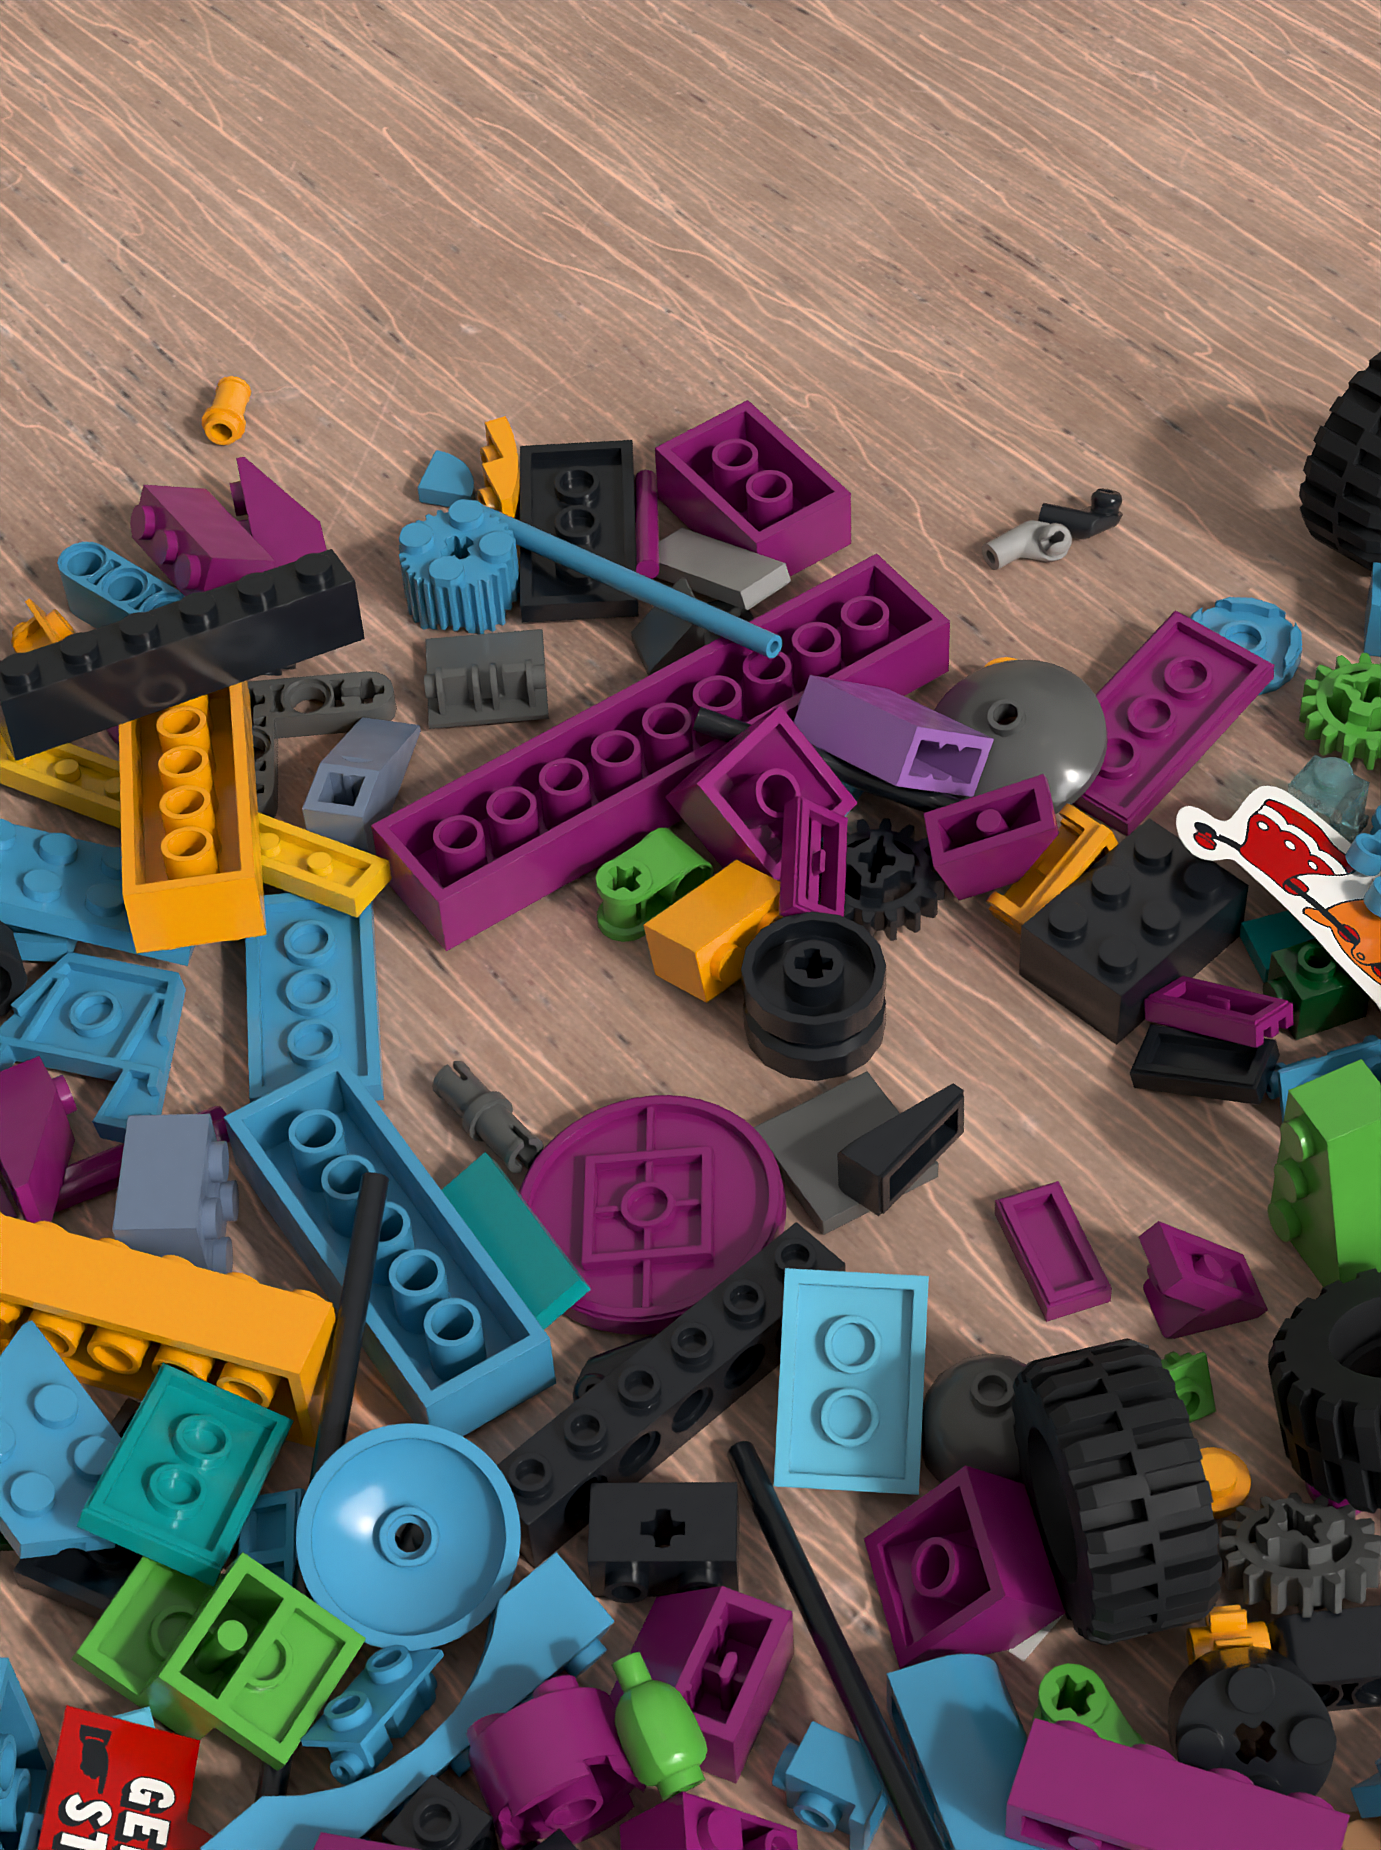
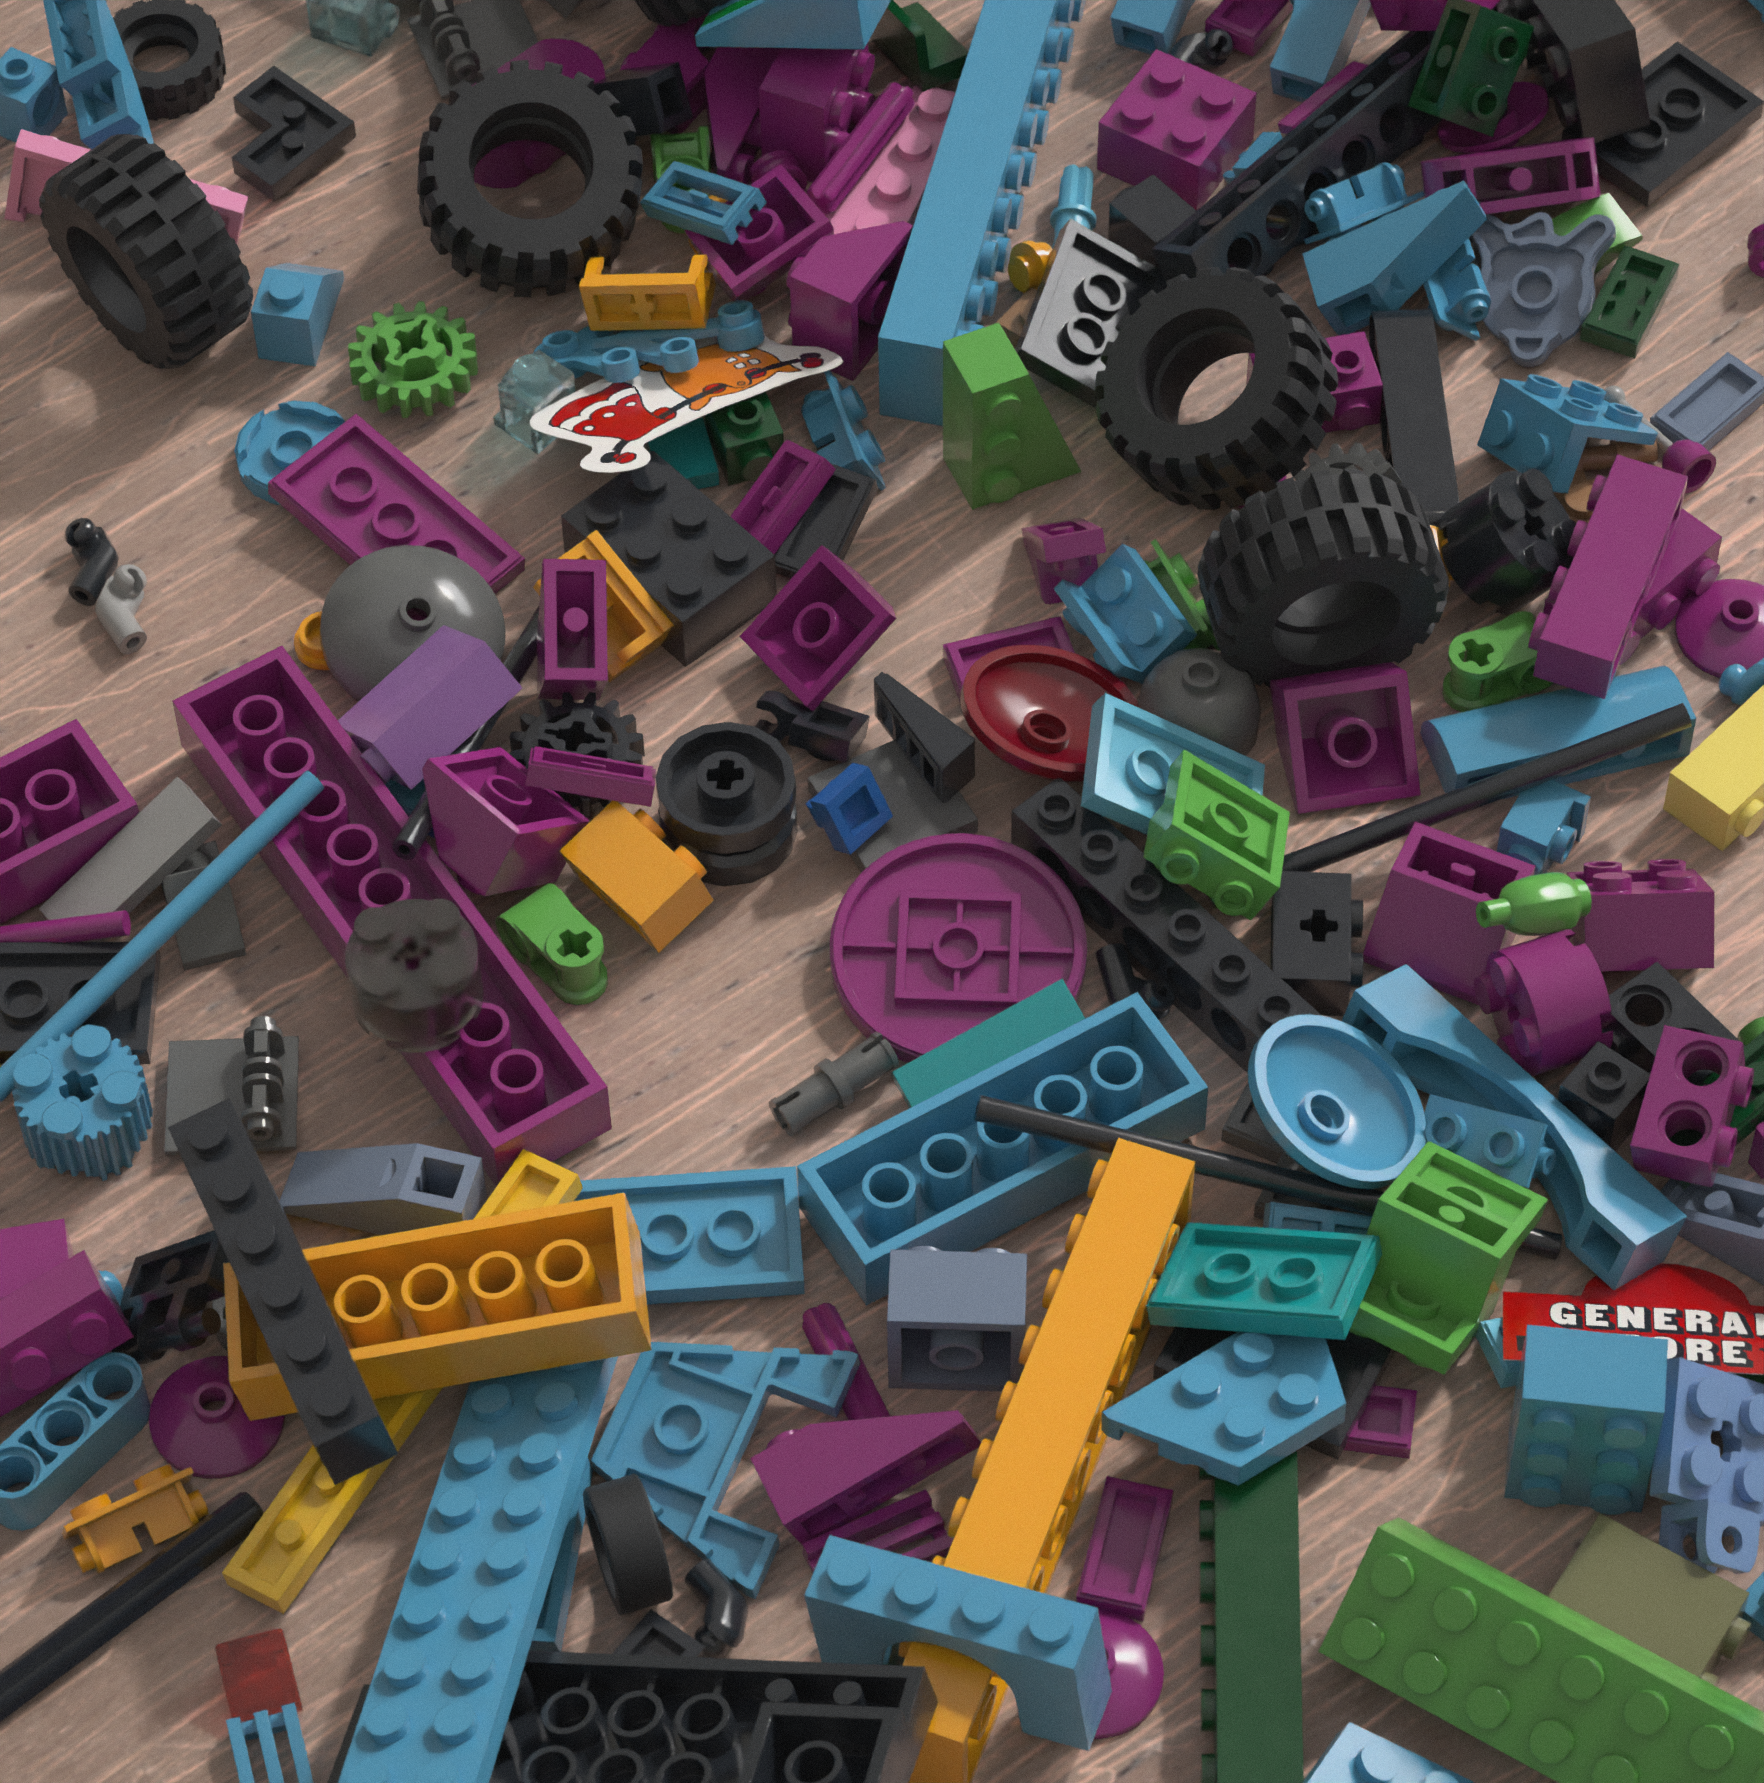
camera: 90 degrees left, 5 degrees up
(54, 1632) = (1385, 1423): none -> magenta tile
(538, 728) = (414, 973): none -> clear smoke brick
(766, 1412) = (1218, 837): none -> bright green plate
(804, 1091) = (850, 808): none -> blue tile
(927, 1063) = (825, 733): none -> black plate
(970, 1236) = (1036, 707): none -> dark red dish
(1053, 1059) = (819, 626): none -> magenta slope
(1107, 1313) = (1126, 615): none -> dark azure bracket

